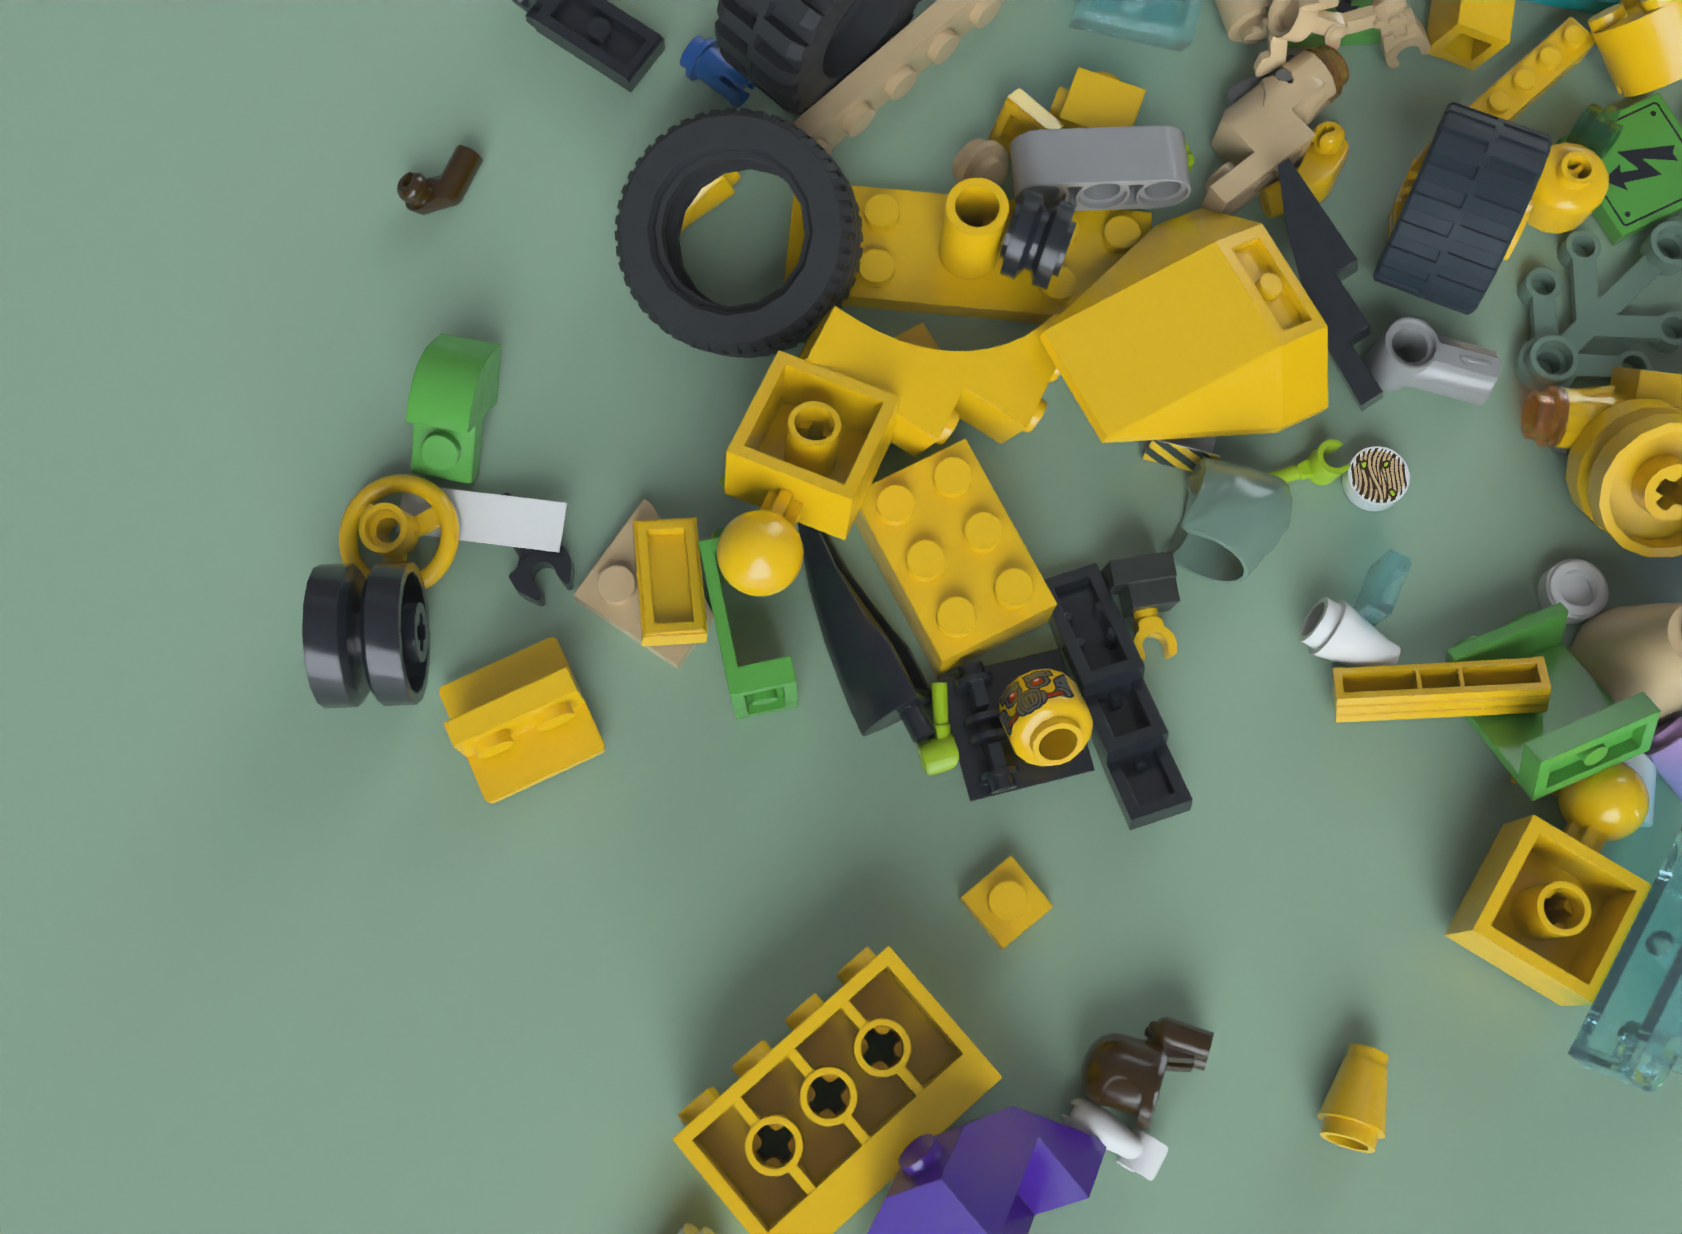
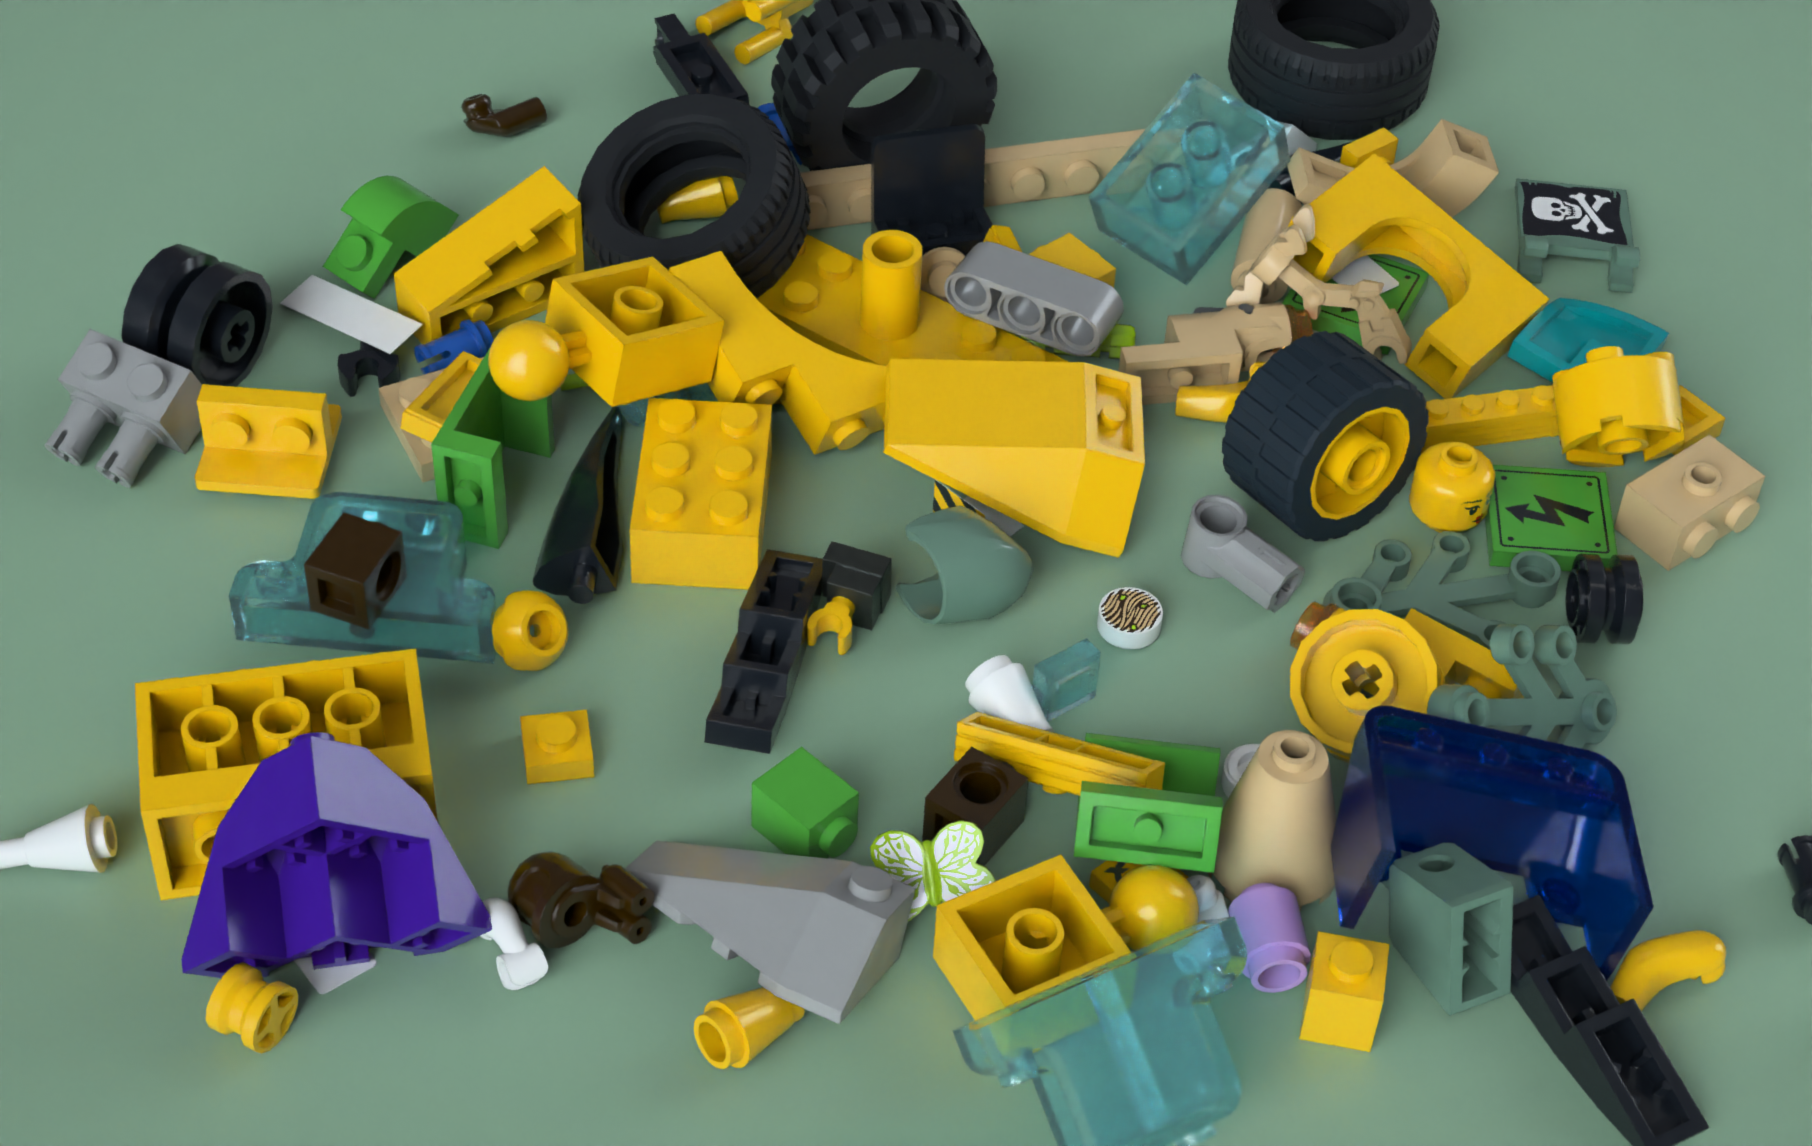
camera: 30 degrees right, 30 degrees down
(362, 745) = (133, 390): none -> light grey brick
(377, 520) = (285, 291): yellow piece -> none
(586, 397) = (496, 262): none -> yellow wedge
(608, 506) = (471, 338): none -> blue pin
(735, 823) = (429, 612): none -> clear light blue brick
(749, 862) = (355, 570): none -> dark brown brick
(911, 803) = (513, 636): none -> yellow plate
(928, 97) = (931, 186): none -> black bracket
(941, 752) = (589, 621): lime hand -> none
(983, 746) = (666, 630): black hinge -> none
(1037, 239) = (937, 309): black wheel -> none
(1045, 717) = (686, 610): yellow head -> none
(1265, 857) = (805, 807): none -> bright green brick
(1314, 466) = (1085, 589): lime hand -> none
(1322, 265) = (1176, 447): black slope -> none
(1333, 987) = (806, 923): none -> light grey wedge
(1376, 790) = (982, 793): none -> dark brown brick
(1407, 860) = (936, 867): none -> animal
(1597, 129) = (1512, 456): clear green plate -> none

